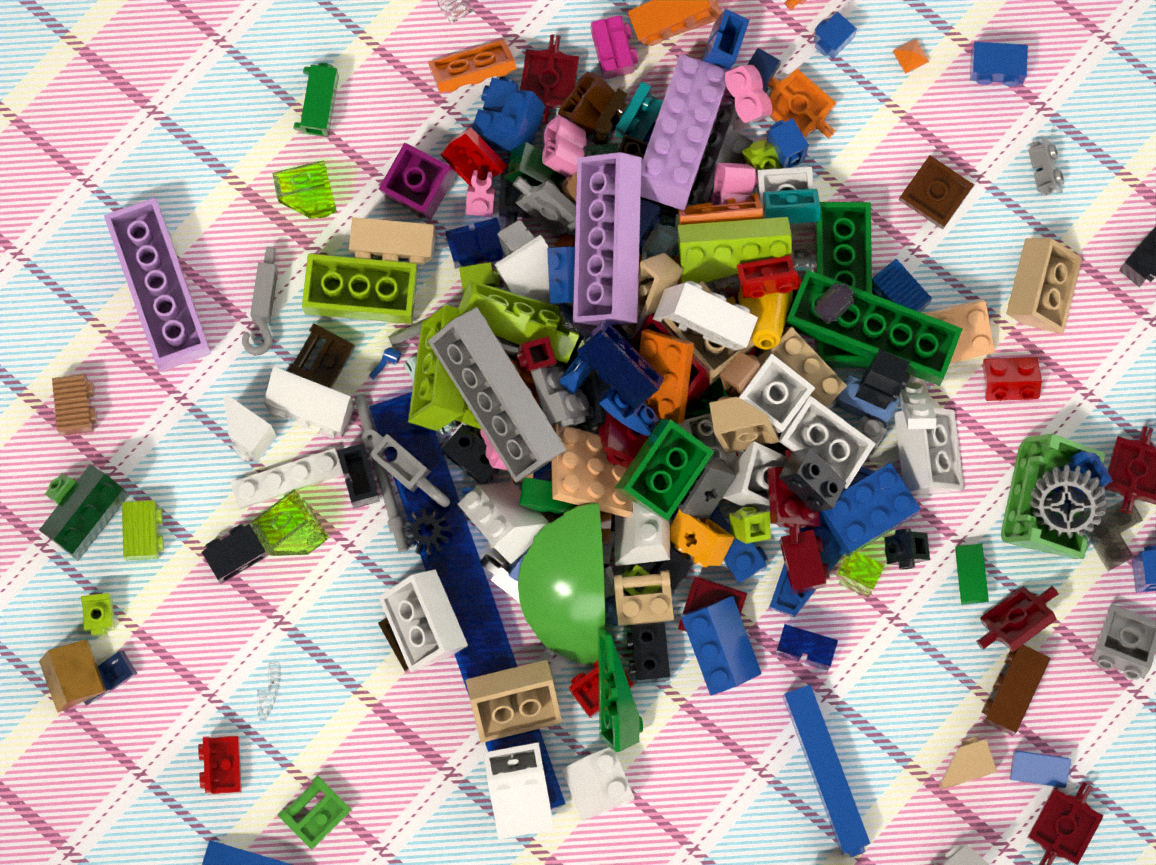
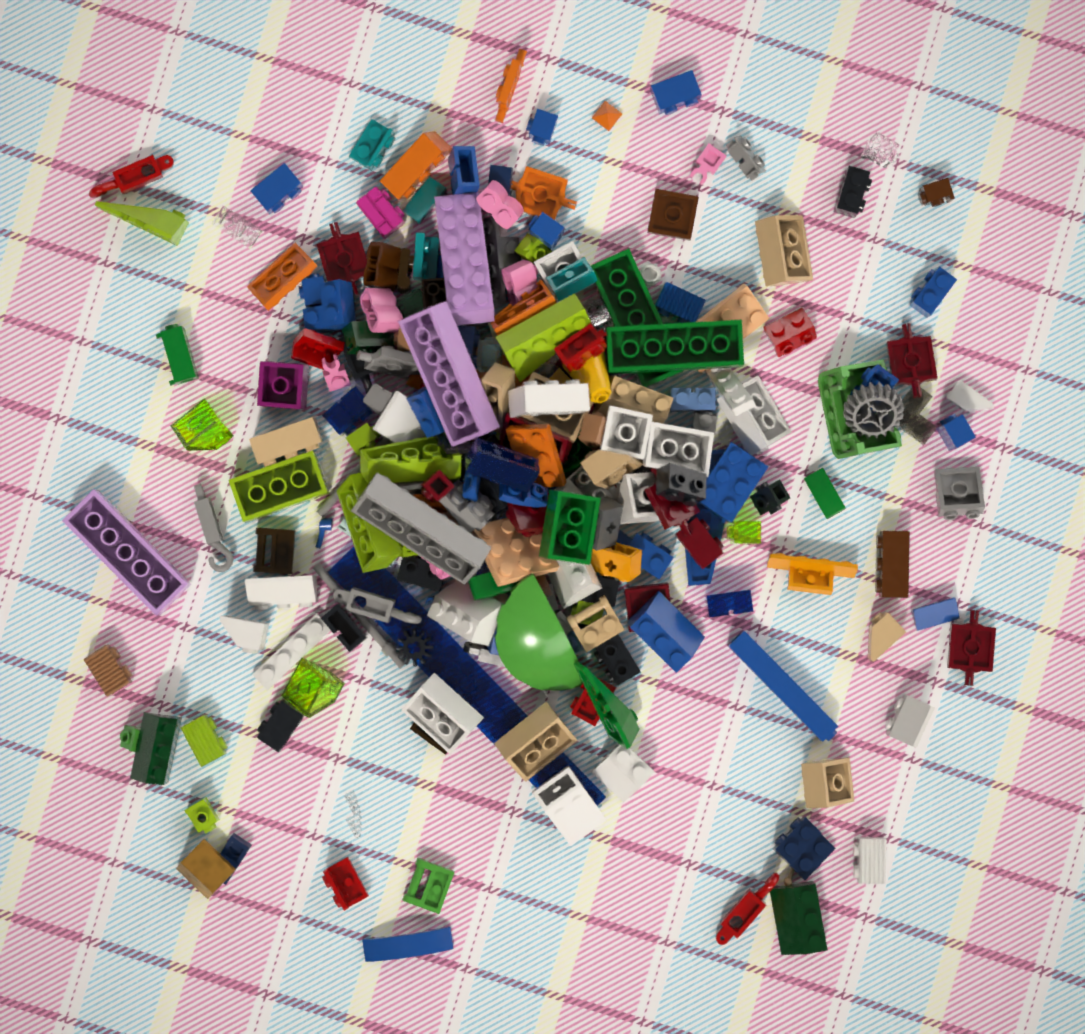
camera: 25 degrees left, 10 degrees up
(666, 56) = (424, 200): none -> teal slope
(750, 525) = (646, 532): lime brick -> none
(834, 302) = (639, 345): brick -> none
(882, 245) = (651, 274): none -> white plate
(883, 379) = (699, 383): black piece -> none
(917, 657) = (811, 574): none -> light orange bracket
(1002, 152) = (709, 162): none -> bright pink plate
(1018, 618) = (873, 512): dark red plate -> none

